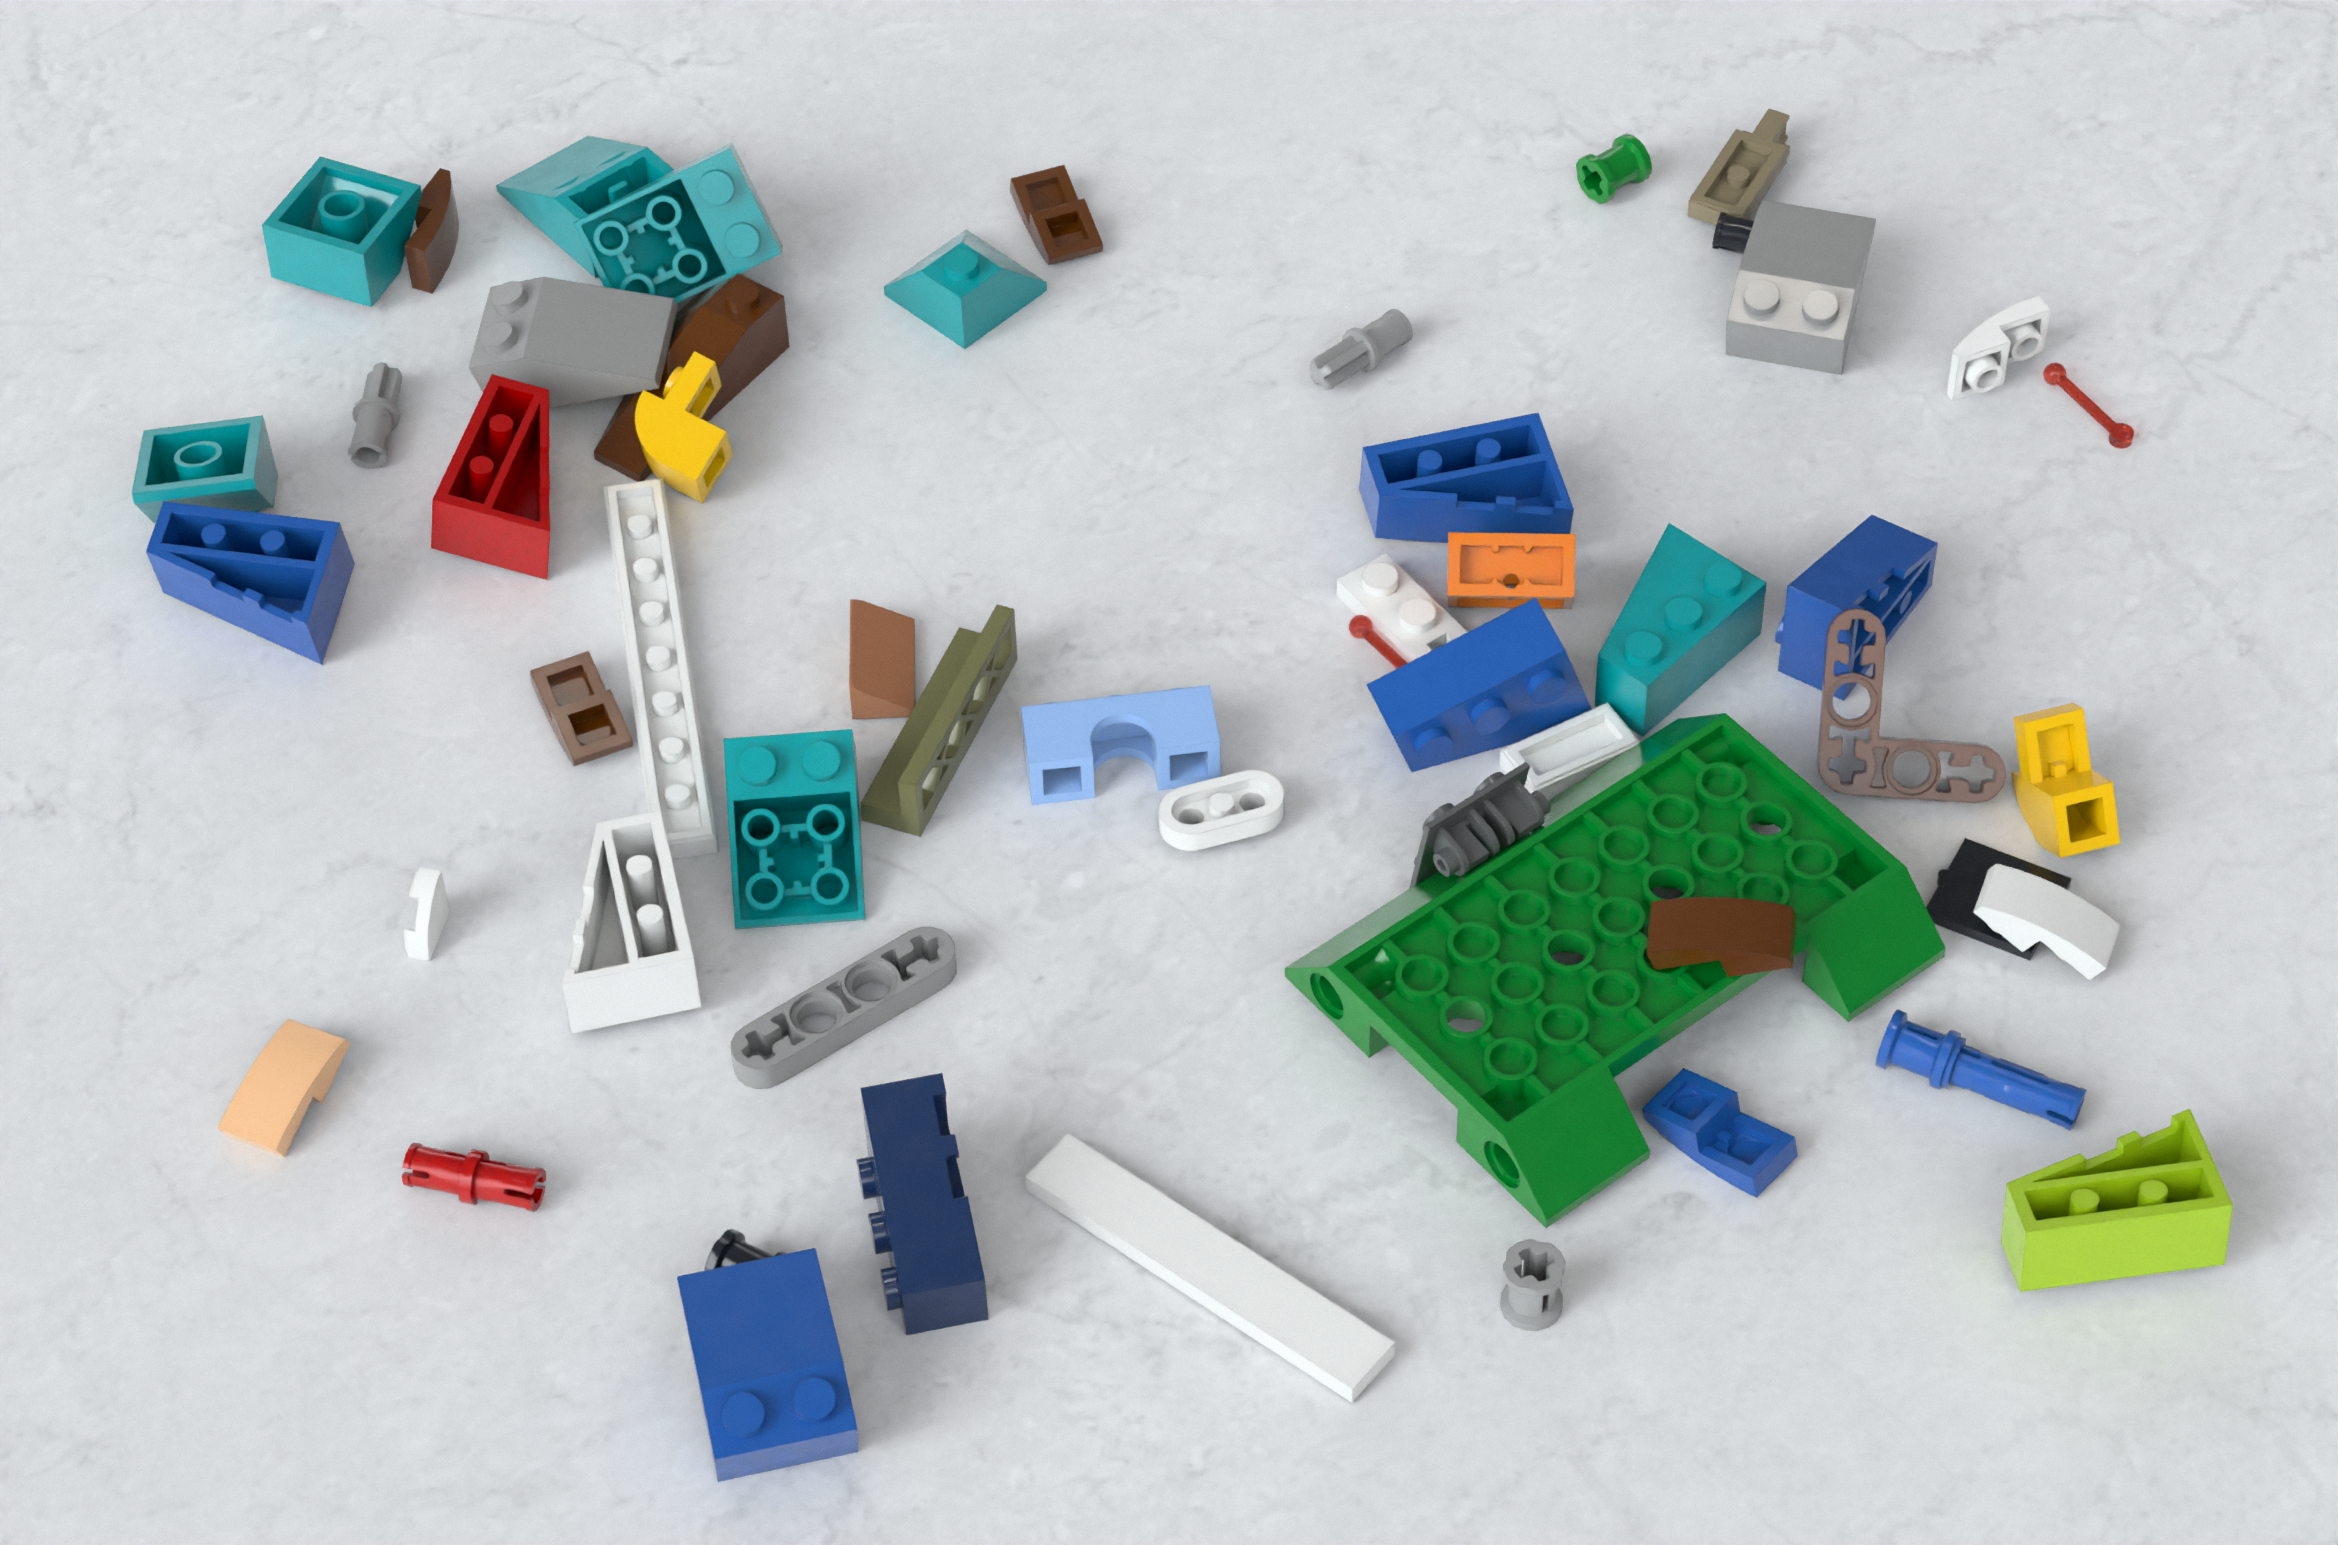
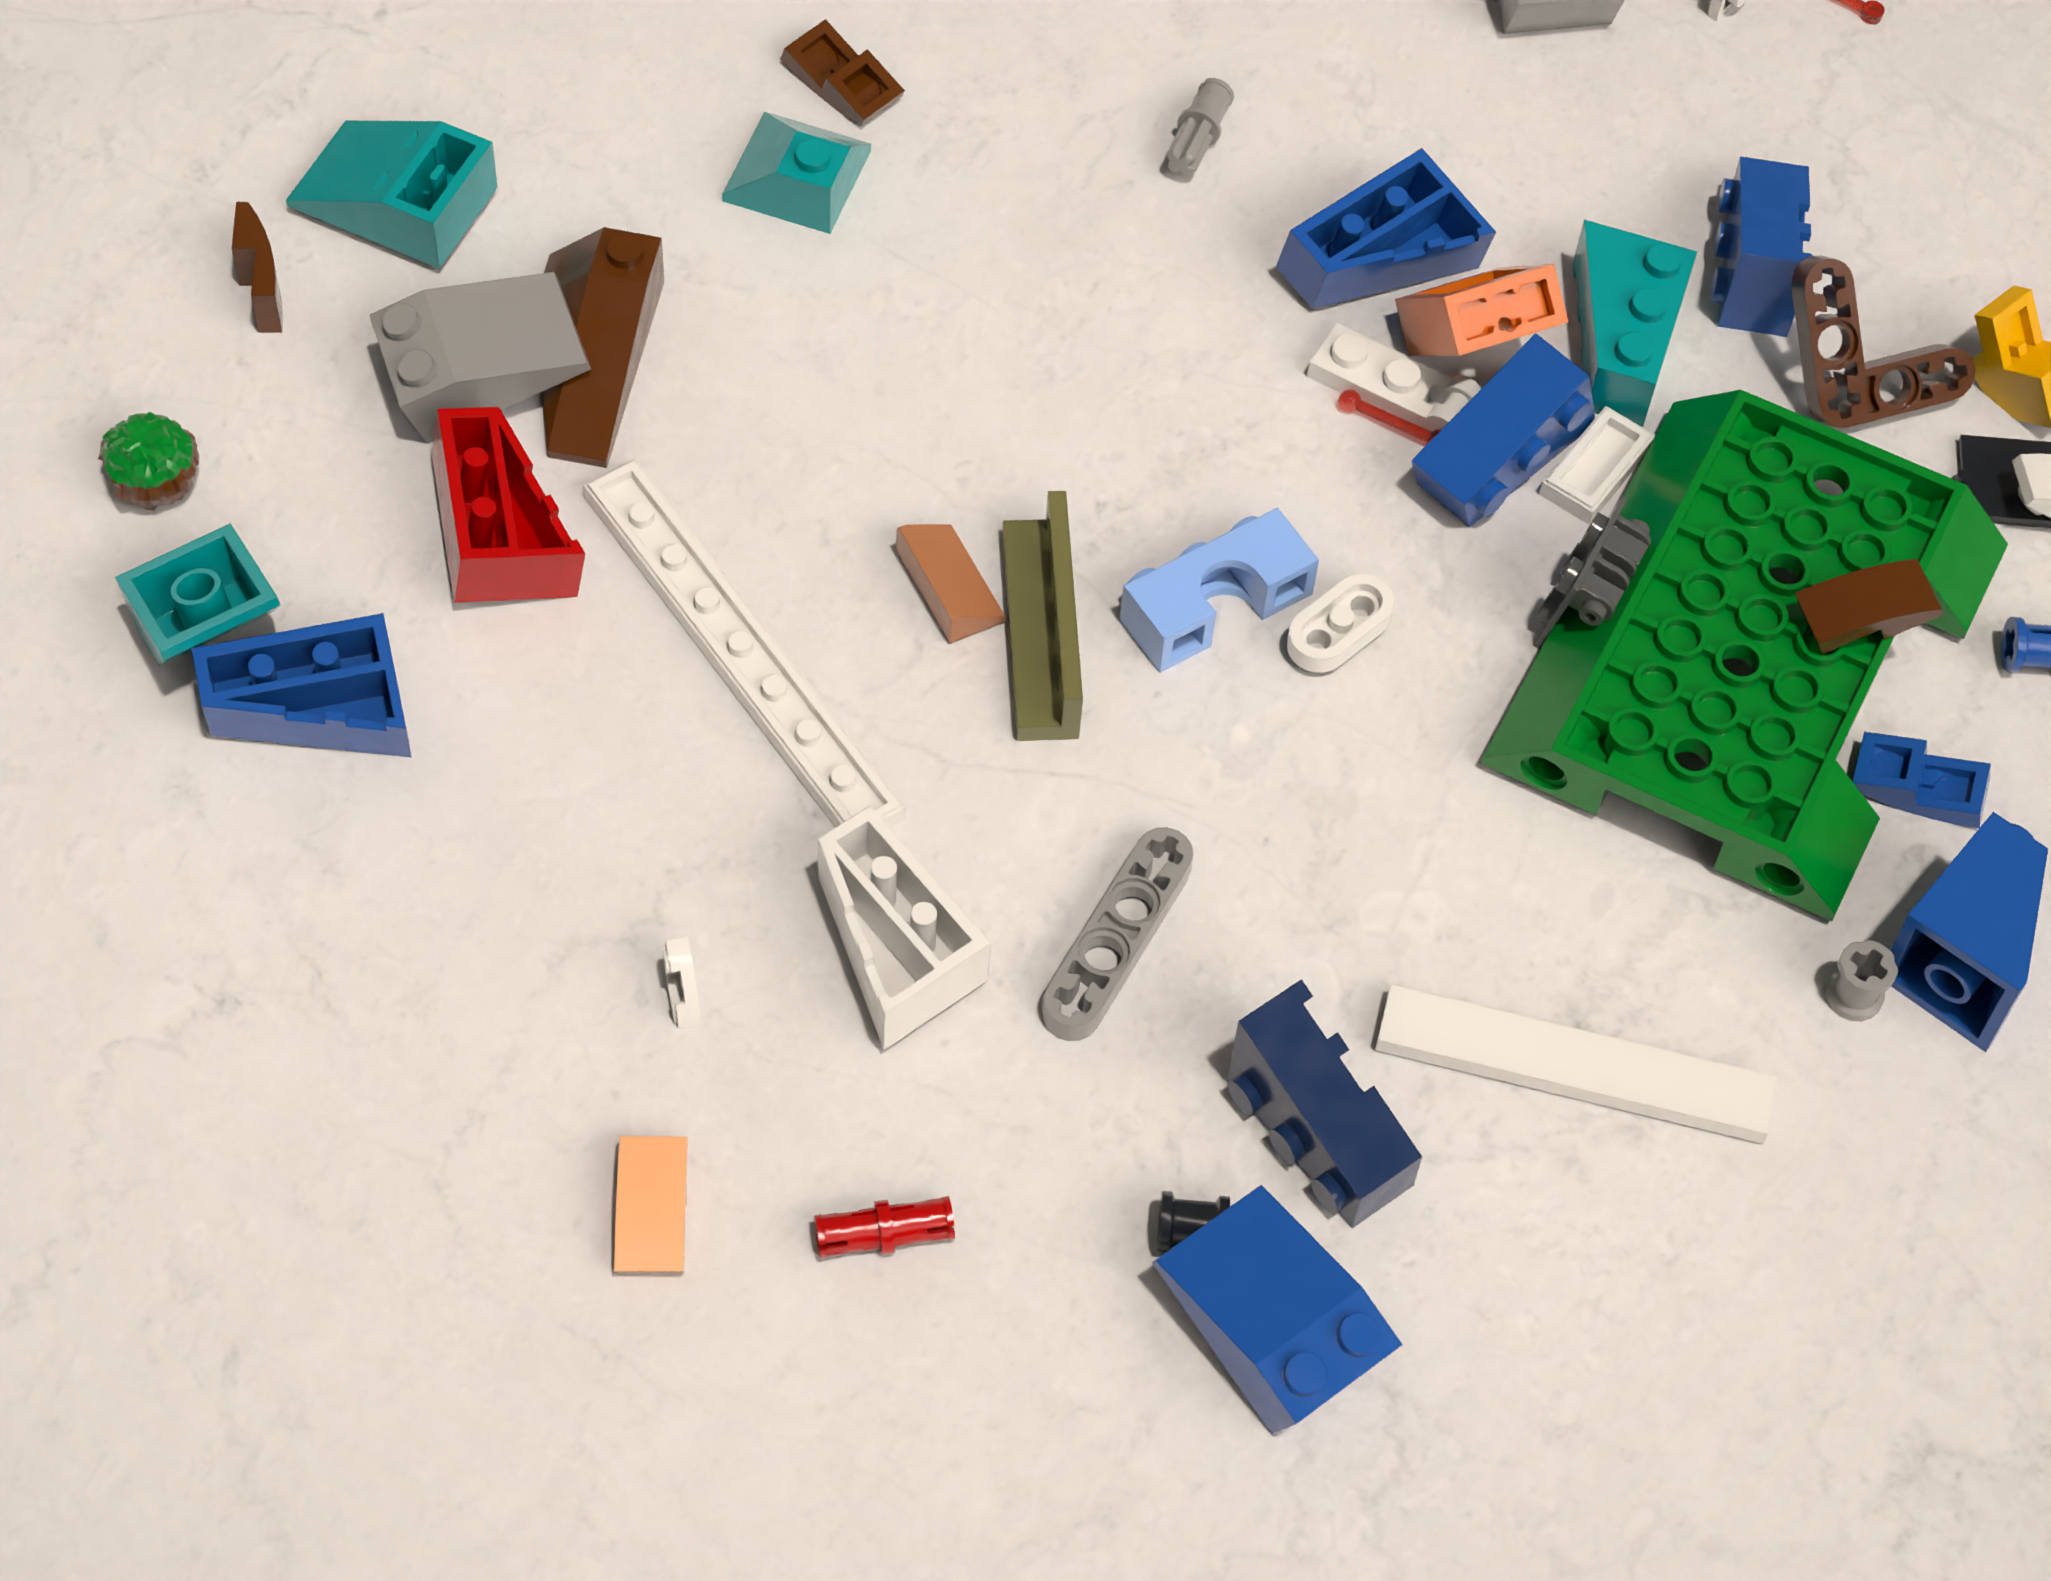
camera: 30 degrees left, 10 degrees up
(243, 355) = (149, 460): none -> green piece
(342, 231) = (174, 297): teal slope -> none
(375, 417) = (314, 481): light grey axle -> none
(580, 709) = (697, 724): slope -> none
(673, 435) = (635, 418): yellow brick -> none
(682, 230) = (522, 196): teal slope -> none
(794, 829) = (977, 776): teal slope -> none
(1661, 1267) = (1974, 932): none -> blue slope

